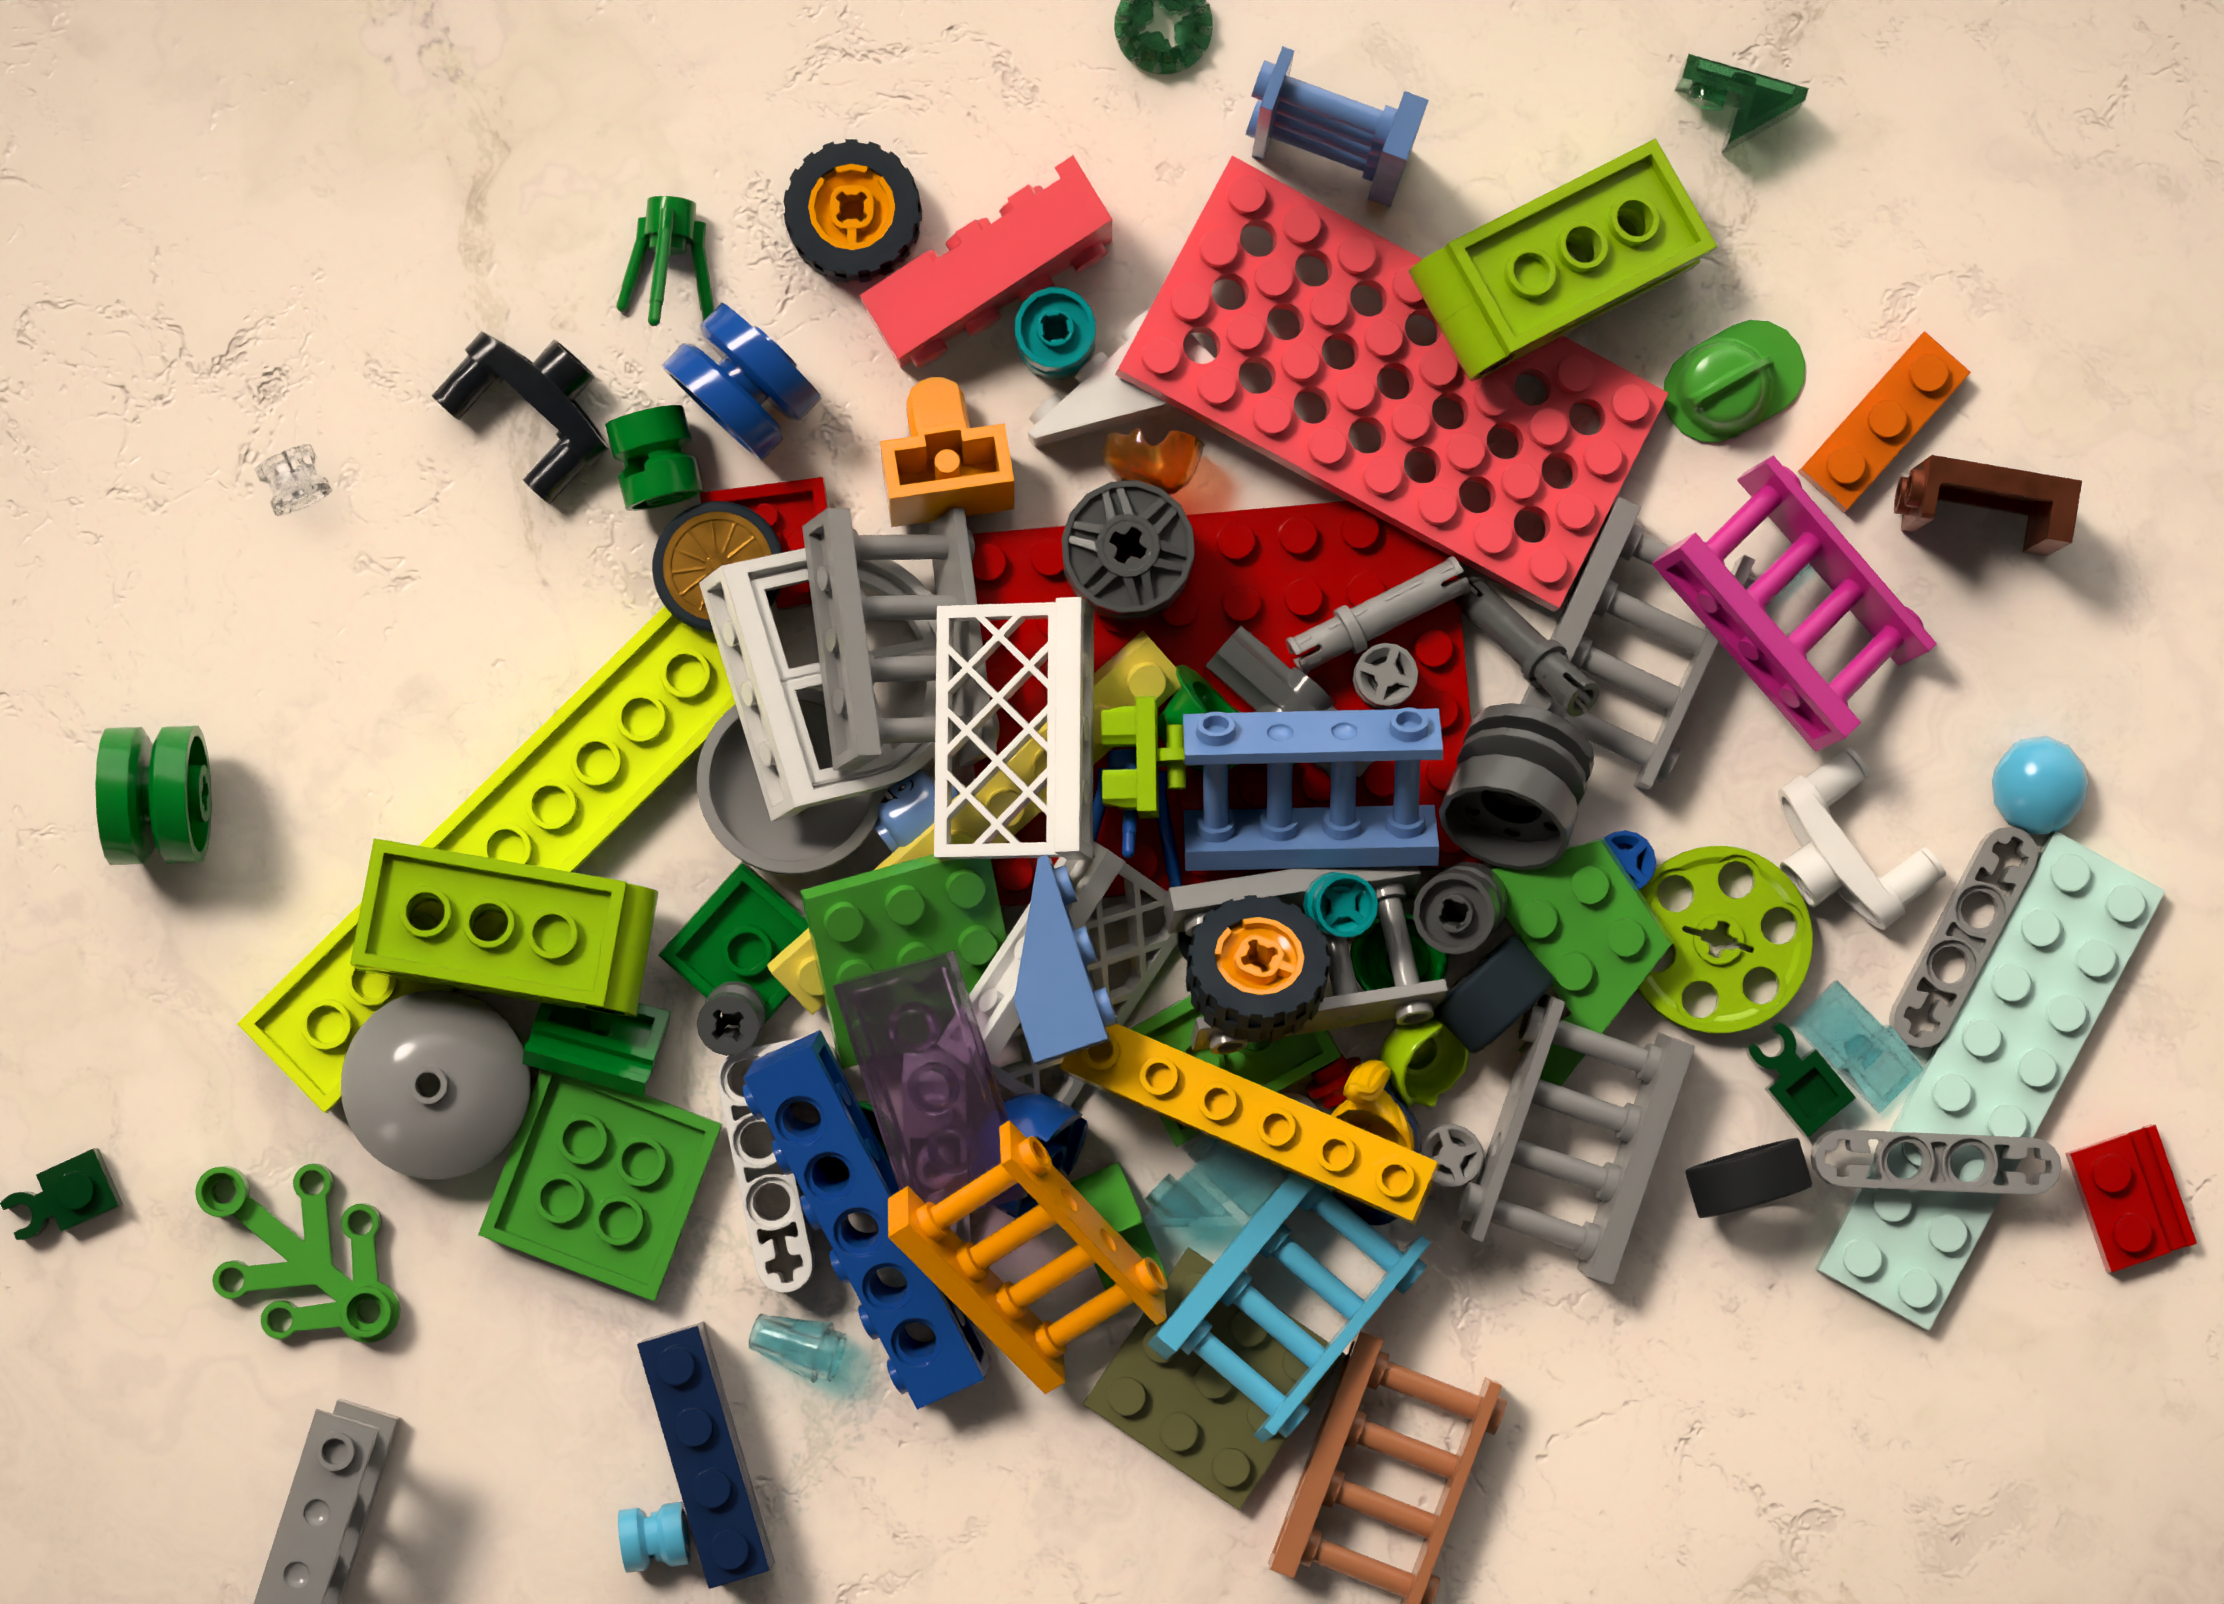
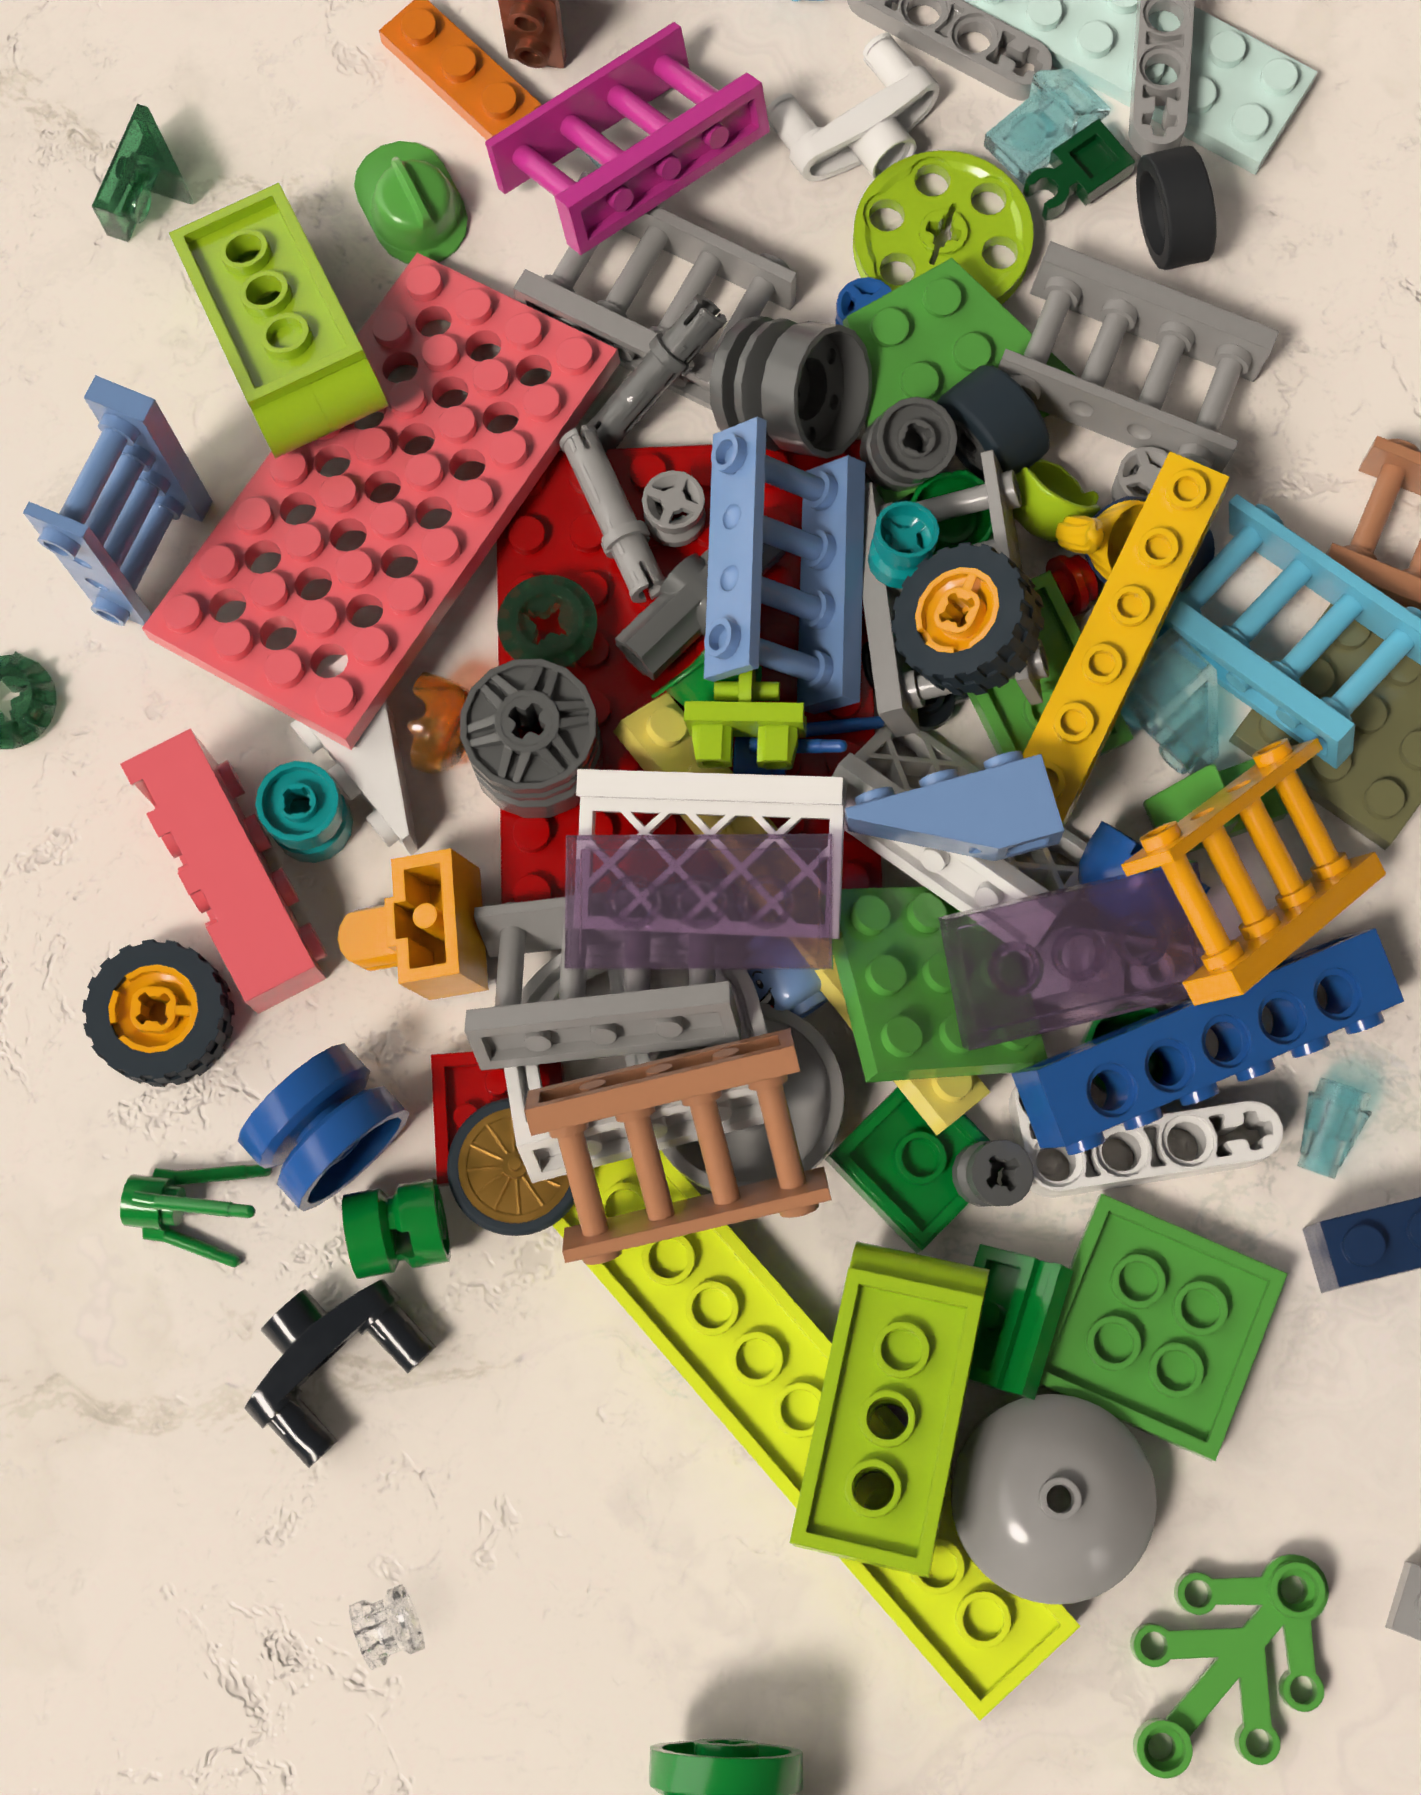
camera: 80 degrees left, 10 degrees down
(783, 700) = (698, 1083): none -> nougat fence
(960, 722) = (699, 902): none -> clear purple tile
(1247, 530) = (539, 598): none -> clear green gear

